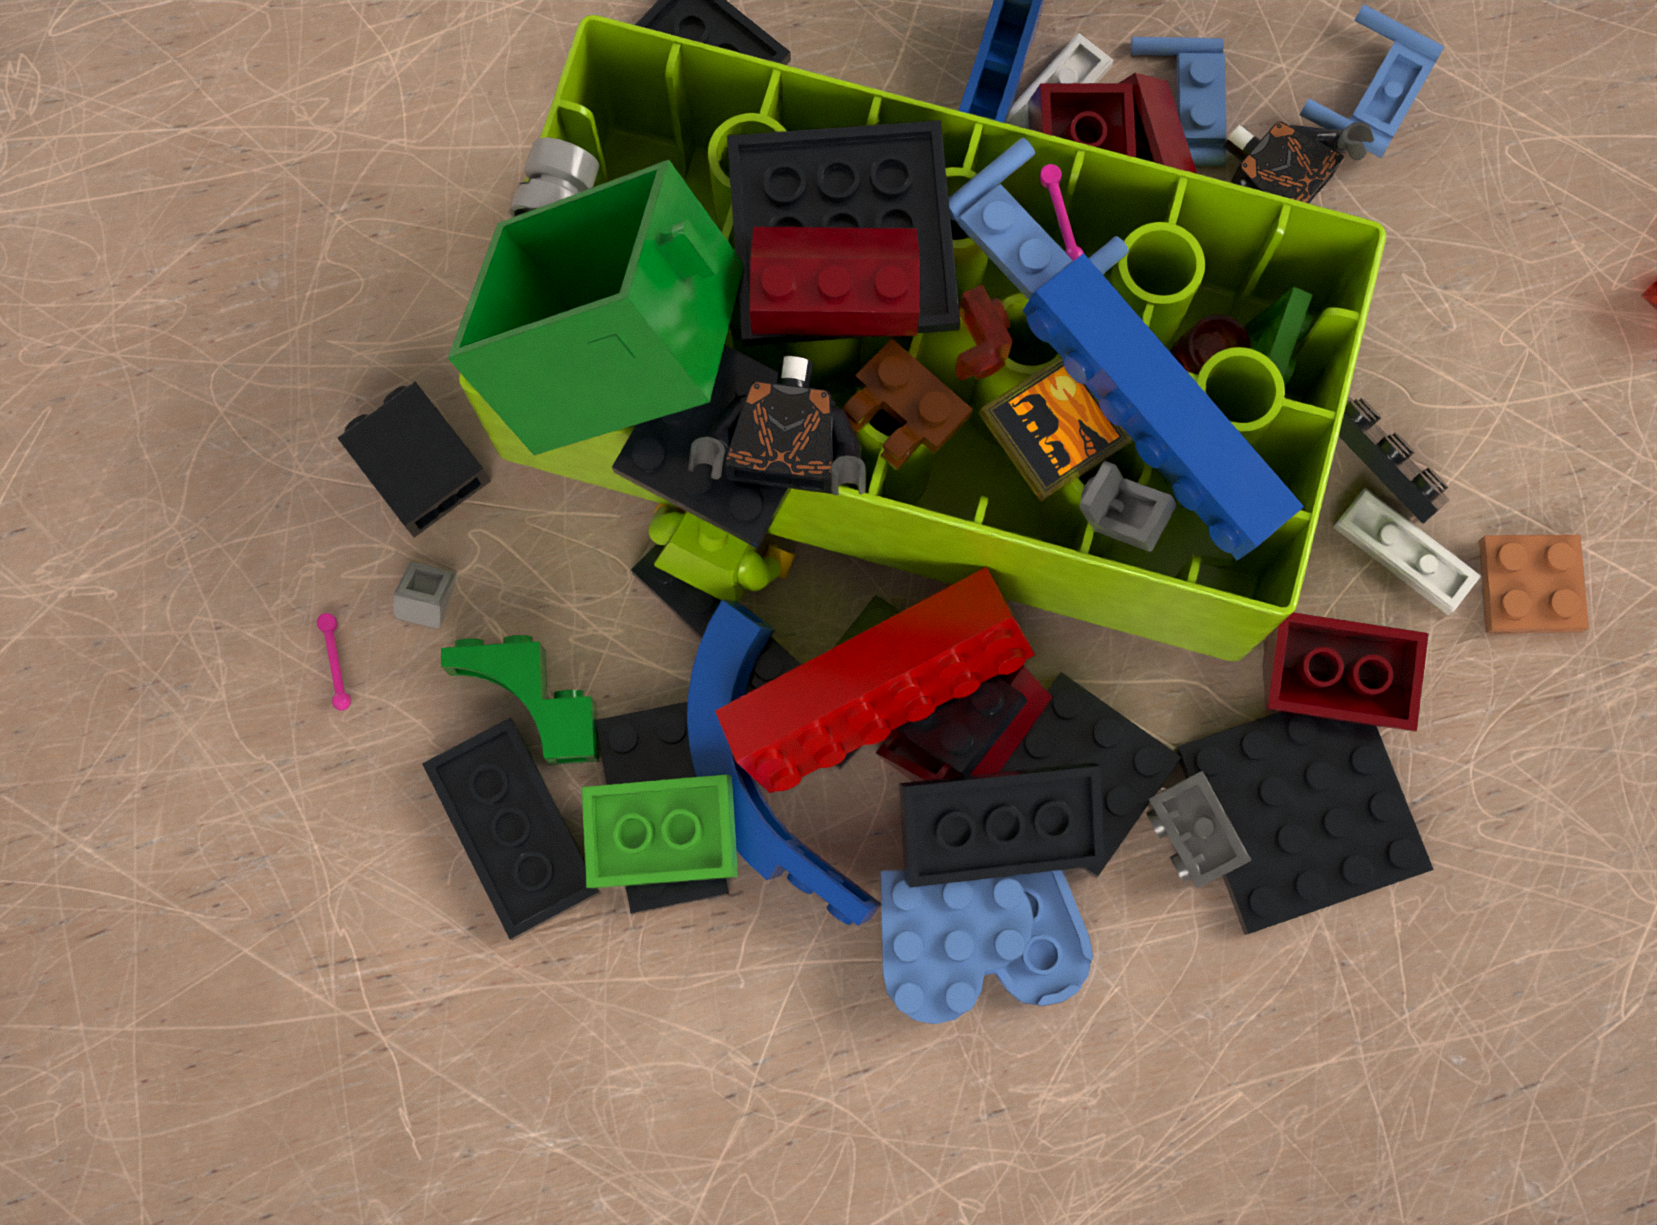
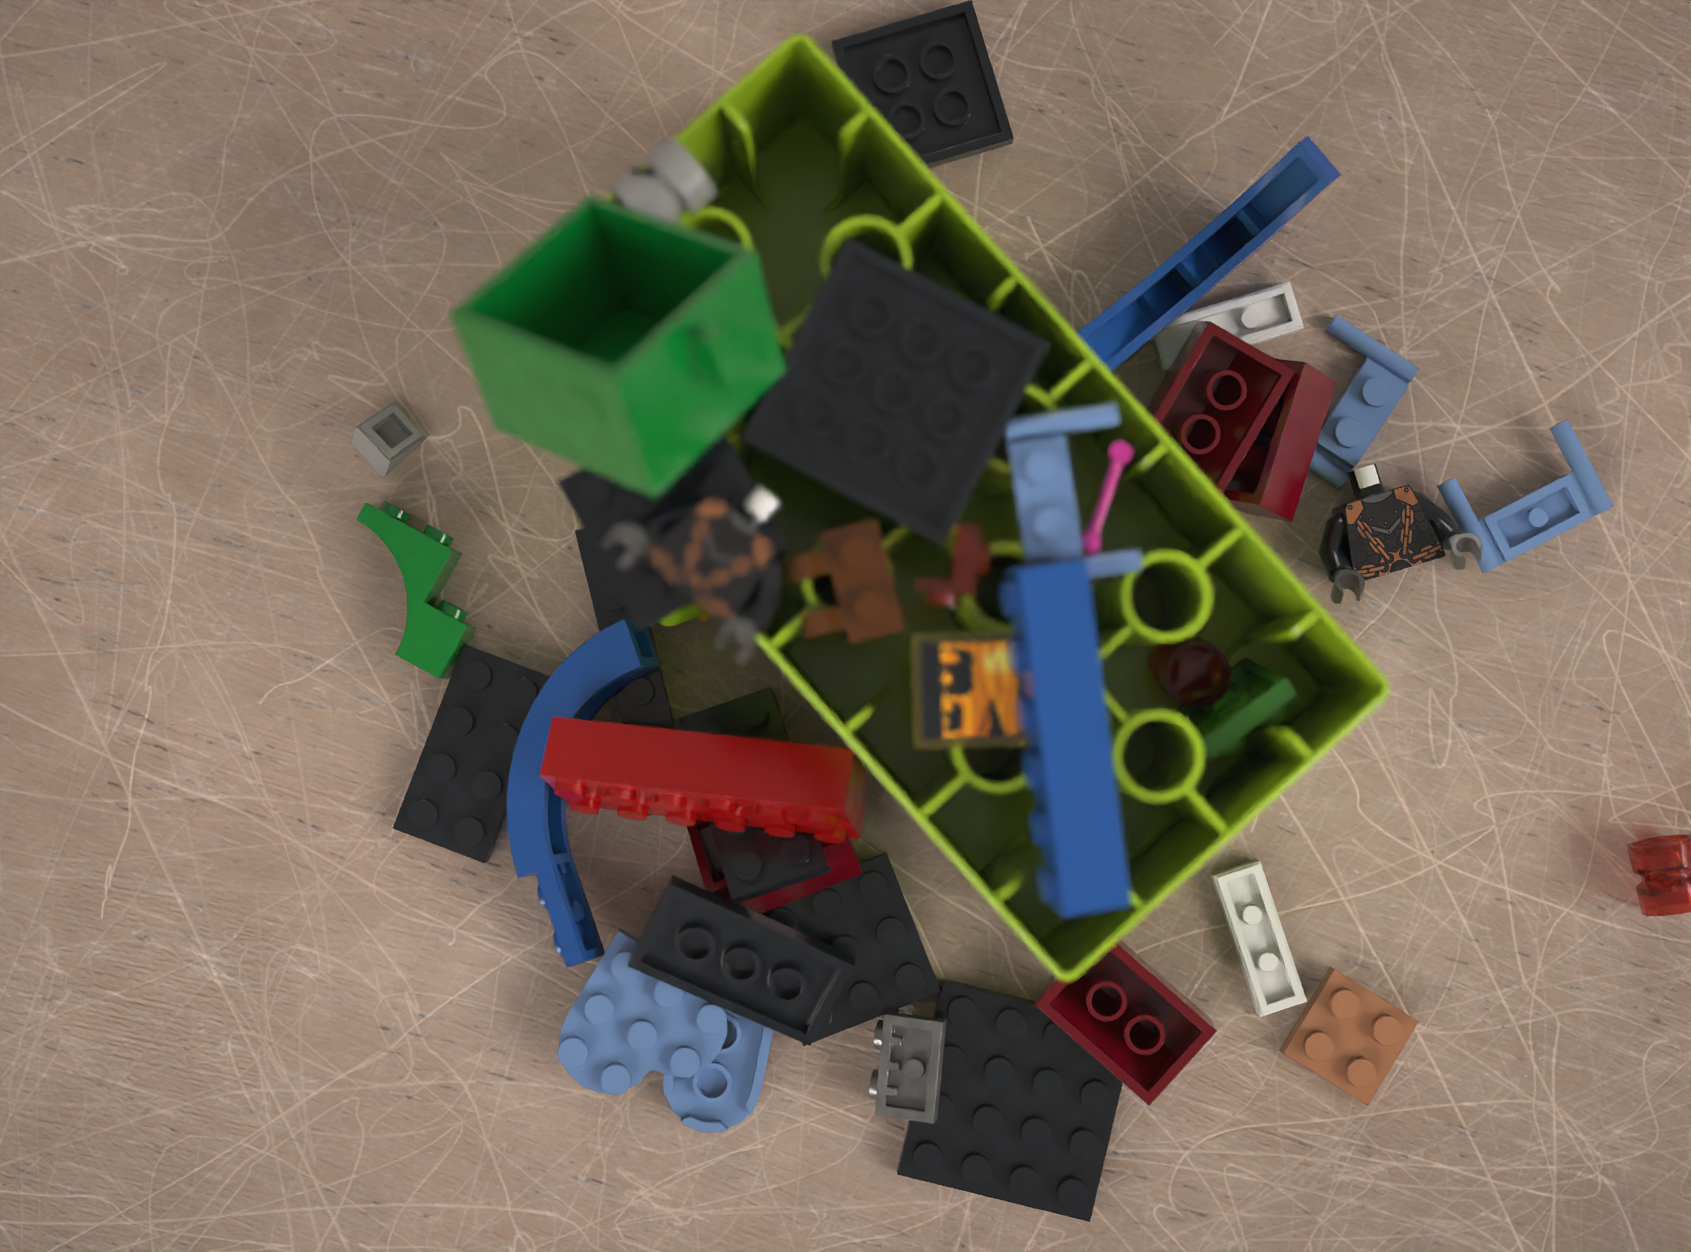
camera: 30 degrees right, 10 degrees up
(328, 624) = (289, 413): dark pink hinge -> none
(413, 458) = (423, 295): black brick -> none
(510, 828) = (336, 693): black plate -> none
(659, 831) = (452, 781): bright green plate -> none
(834, 281) = (853, 436): dark red slope -> none
(1125, 508) = (979, 804): dark grey bracket -> none
(1390, 460) = (1288, 864): black plate -> none

